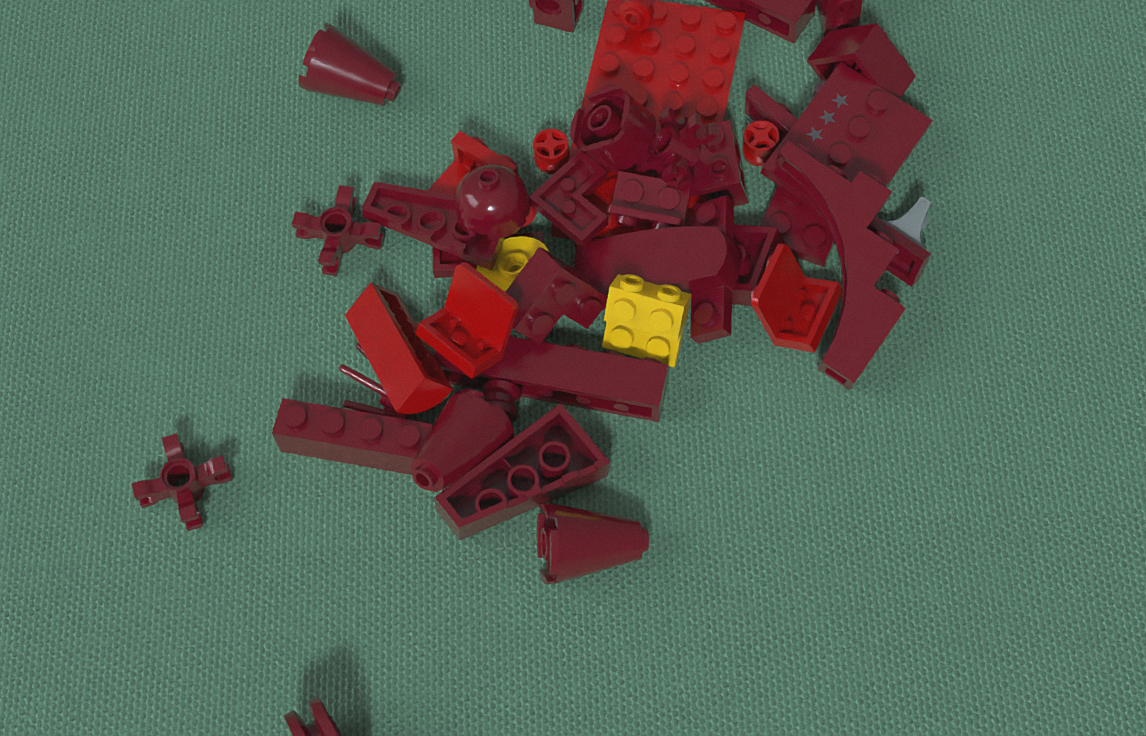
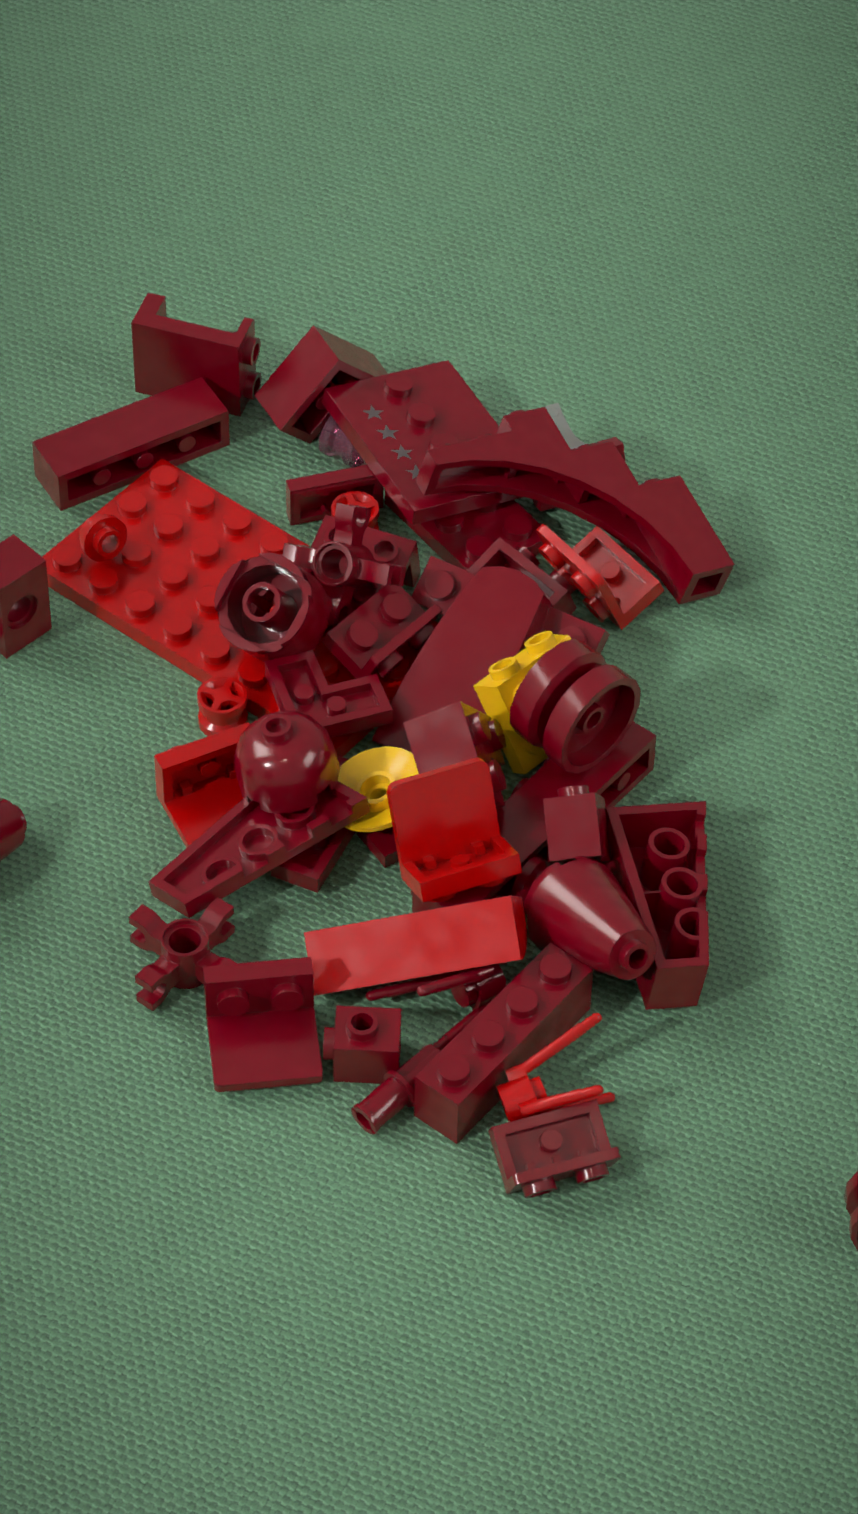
camera: 70 degrees left, 15 degrees down
(186, 496) = (447, 1265): dark red pin -> none
(274, 391) = (393, 1093): none -> dark red axle
(286, 508) = (552, 1148): none -> dark red bracket
(300, 301) = (262, 1024): none -> dark red bracket
(314, 470) = (527, 1097): none -> red plant
(317, 362) = (363, 1043): none -> dark red brick
(529, 392) = (576, 825): none -> dark red brick
(585, 542) = (779, 884): dark red cone -> none
(620, 339) = (575, 706): none -> dark red wheel

